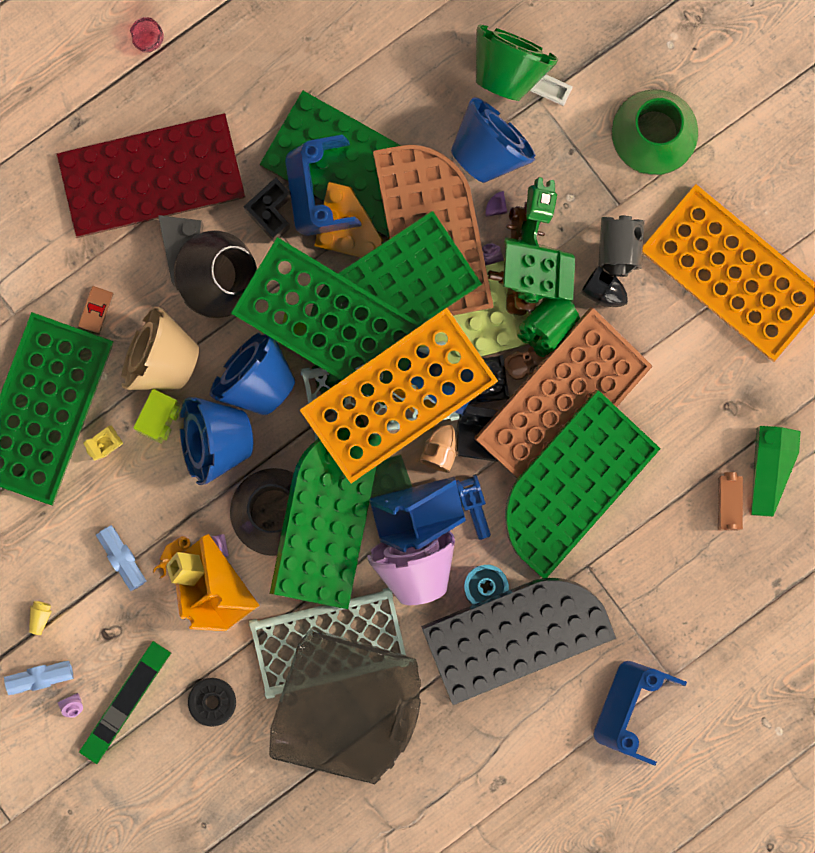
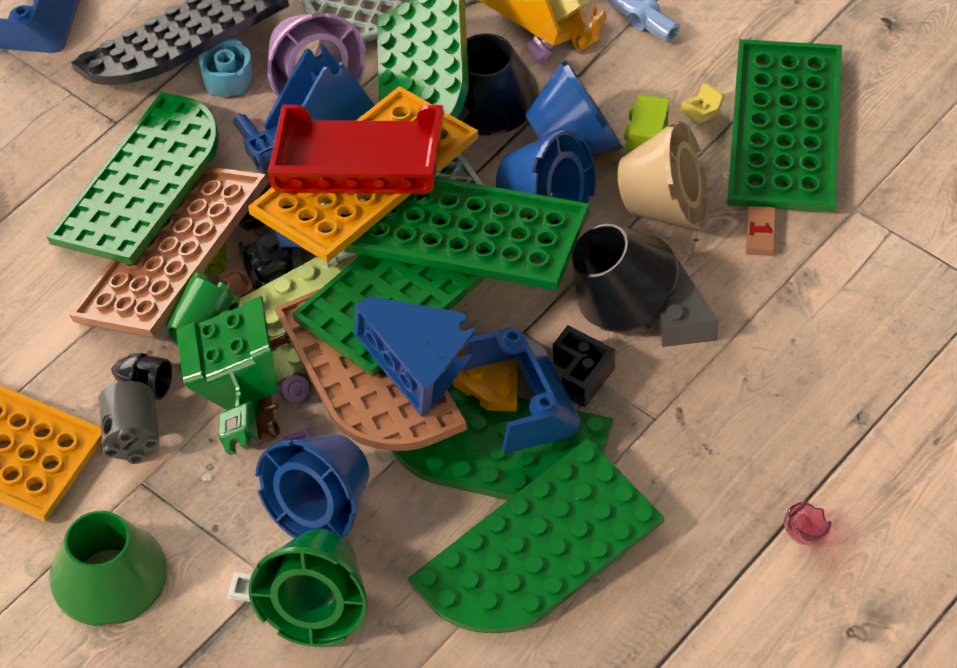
camera: 170 degrees right, 30 degrees down
(150, 175) = (744, 380): dark red plate -> none
(341, 67) = (538, 546): none -> green plate
(394, 204) = (414, 346): none -> blue ladder
(400, 408) = (355, 154): none -> red windscreen

